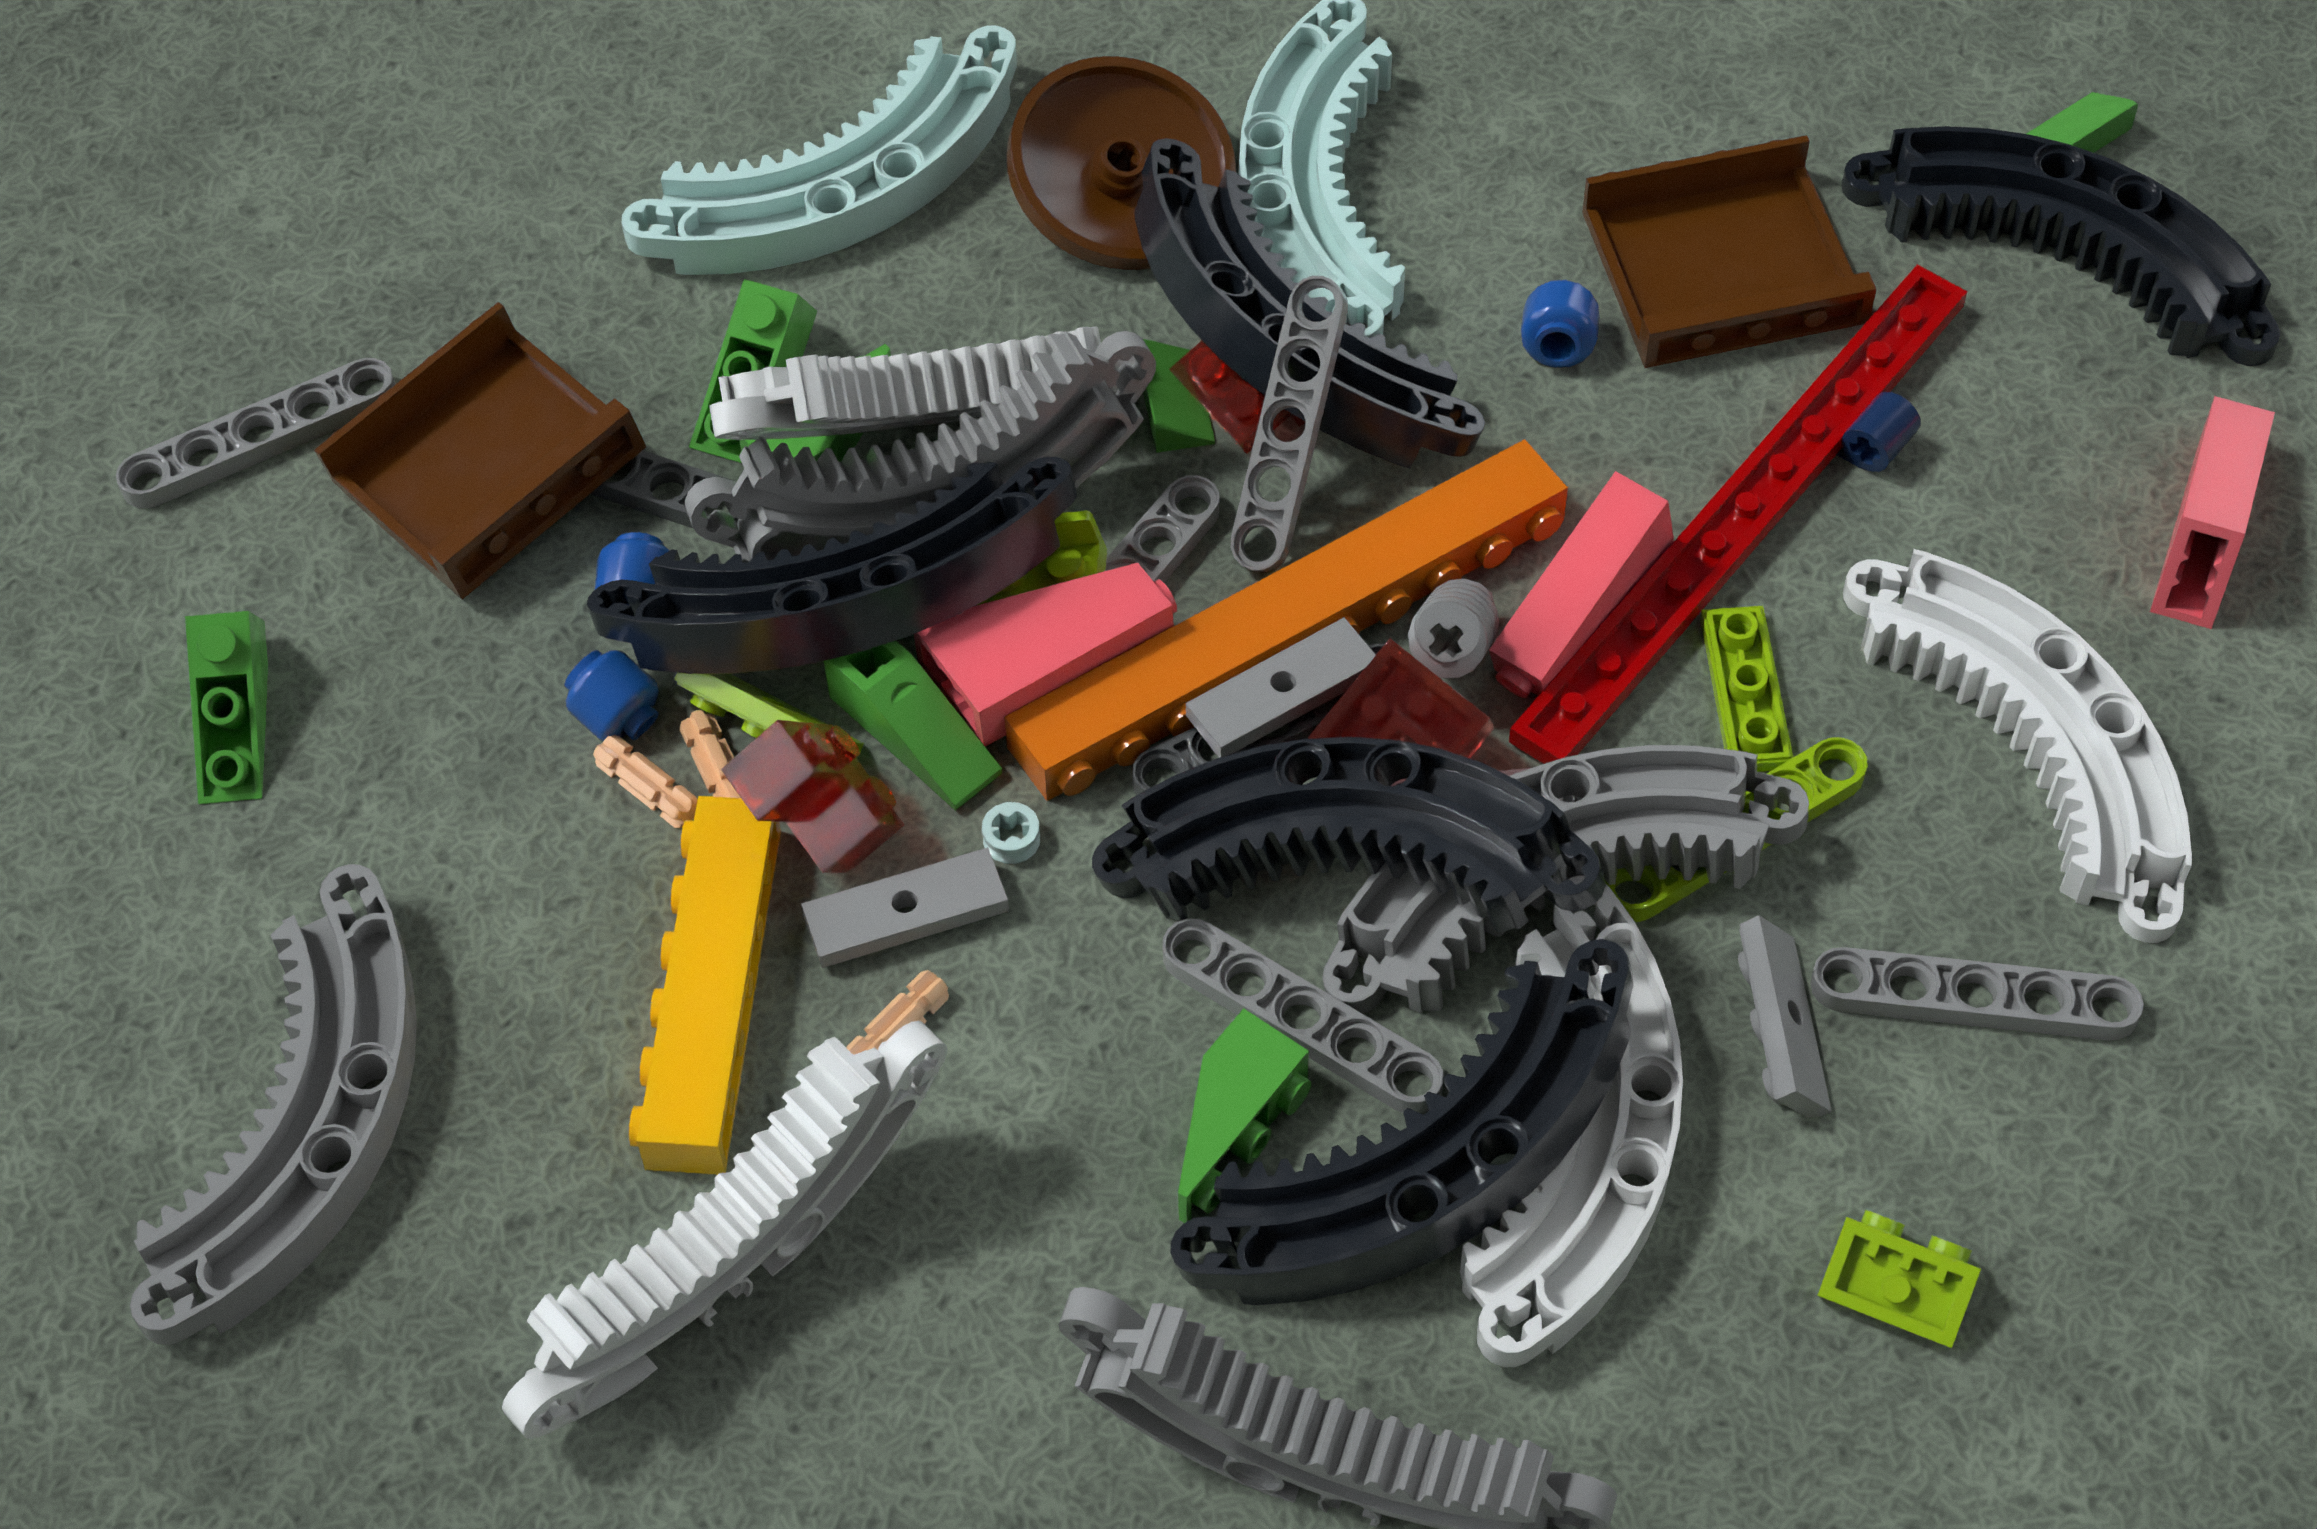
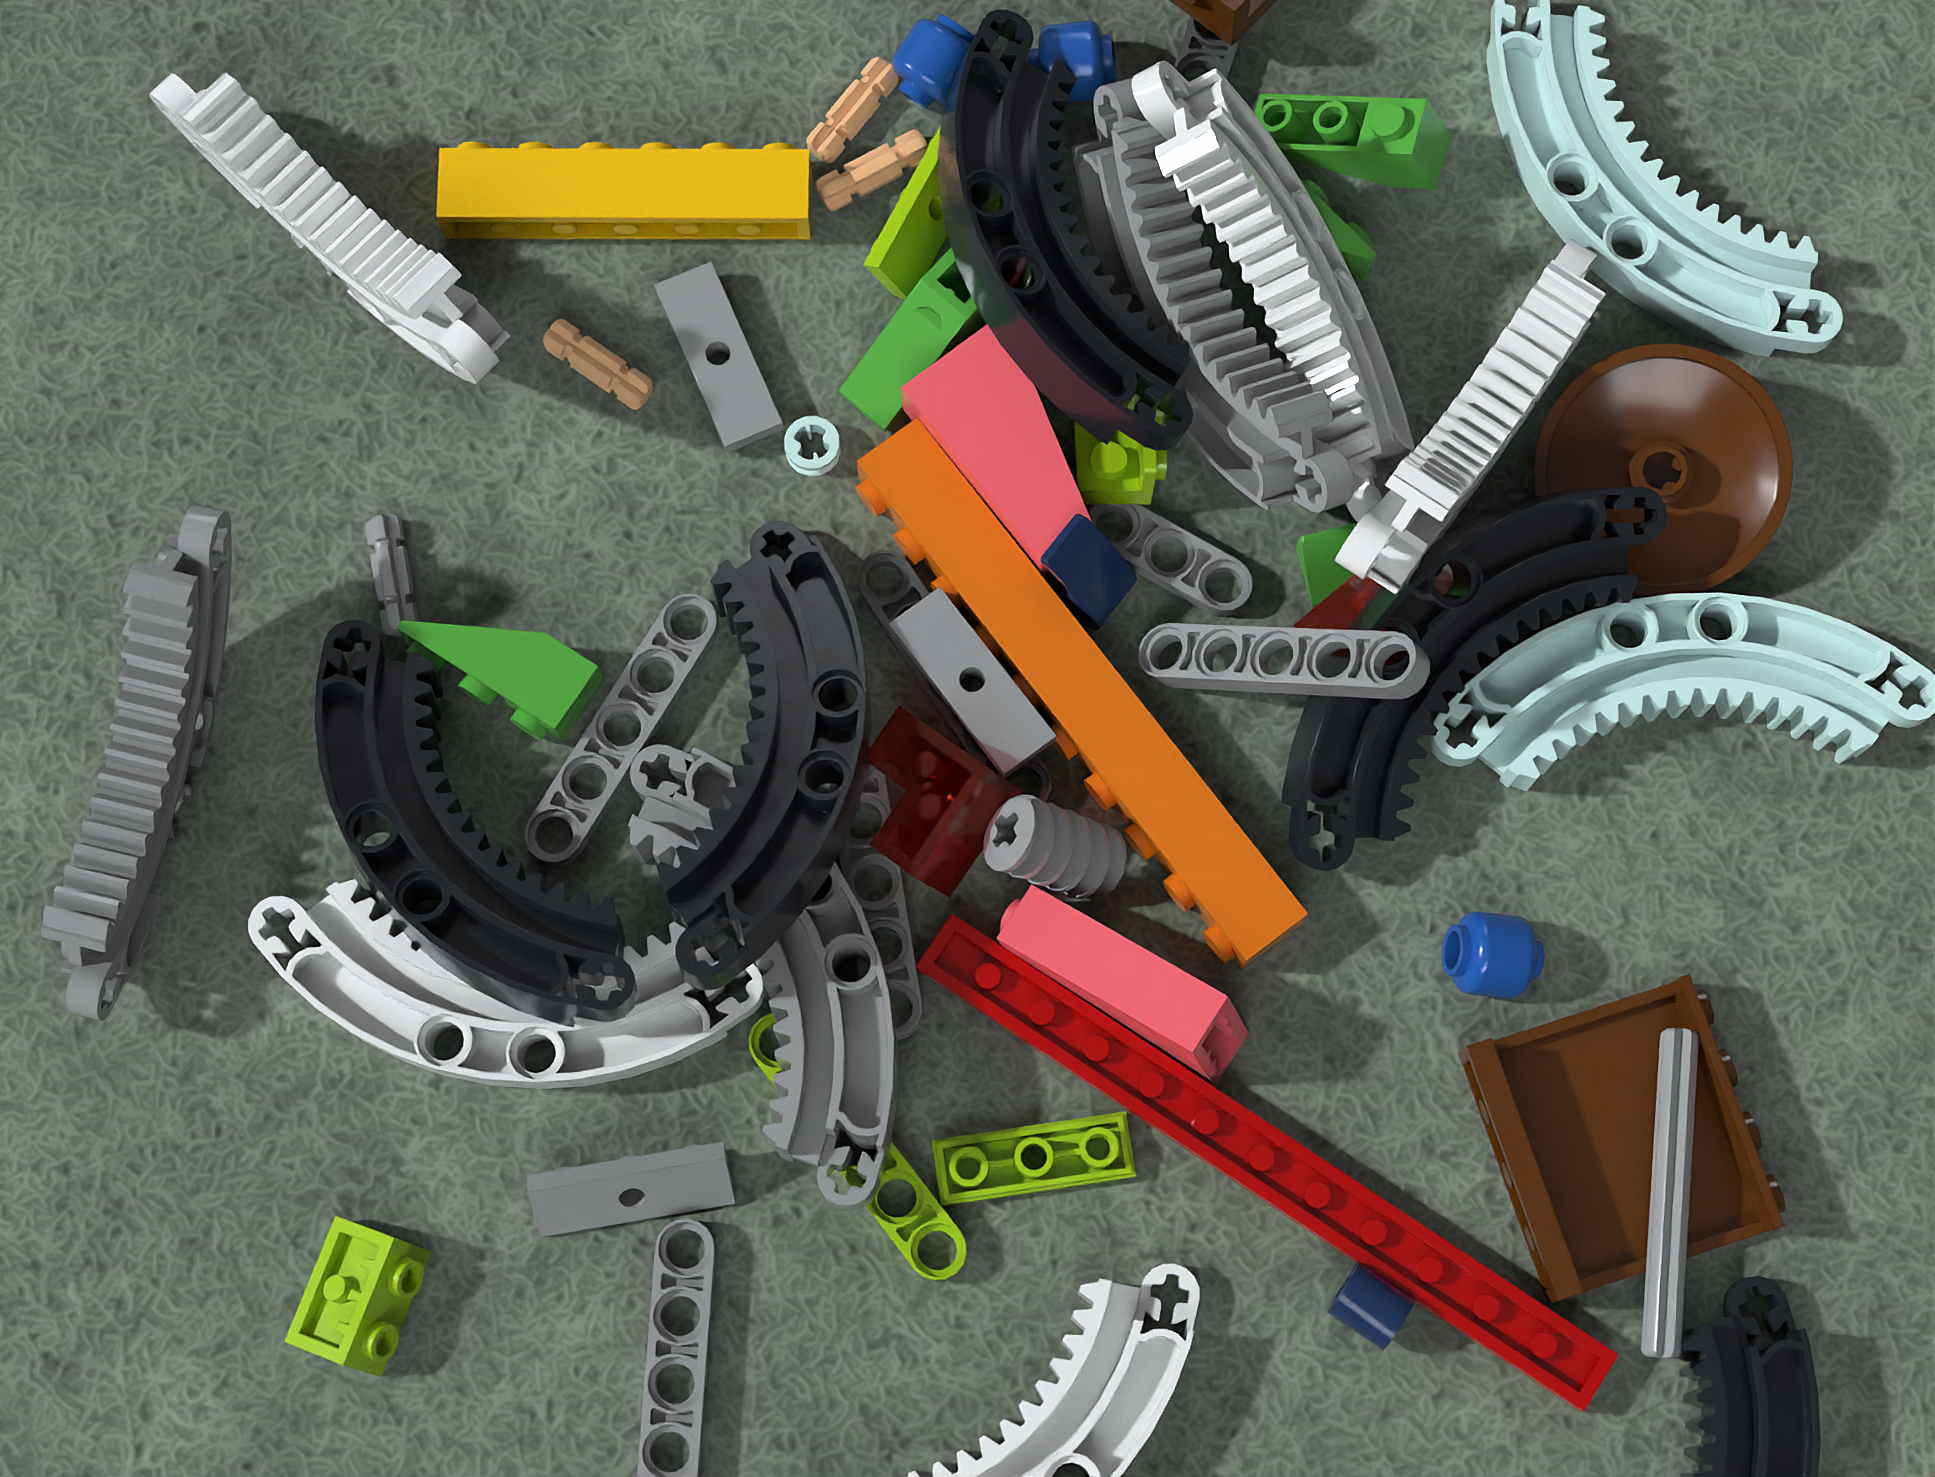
camera: 85 degrees right, 20 degrees up
(817, 787) = (816, 255): clear red brick -> none
(1071, 277) = (1475, 430): none -> white gear
(1111, 1230) = (391, 572): none -> light grey axle
(1188, 587) = (1091, 571): none -> dark blue panel
(1775, 216) = (1670, 1194): none -> light grey axle

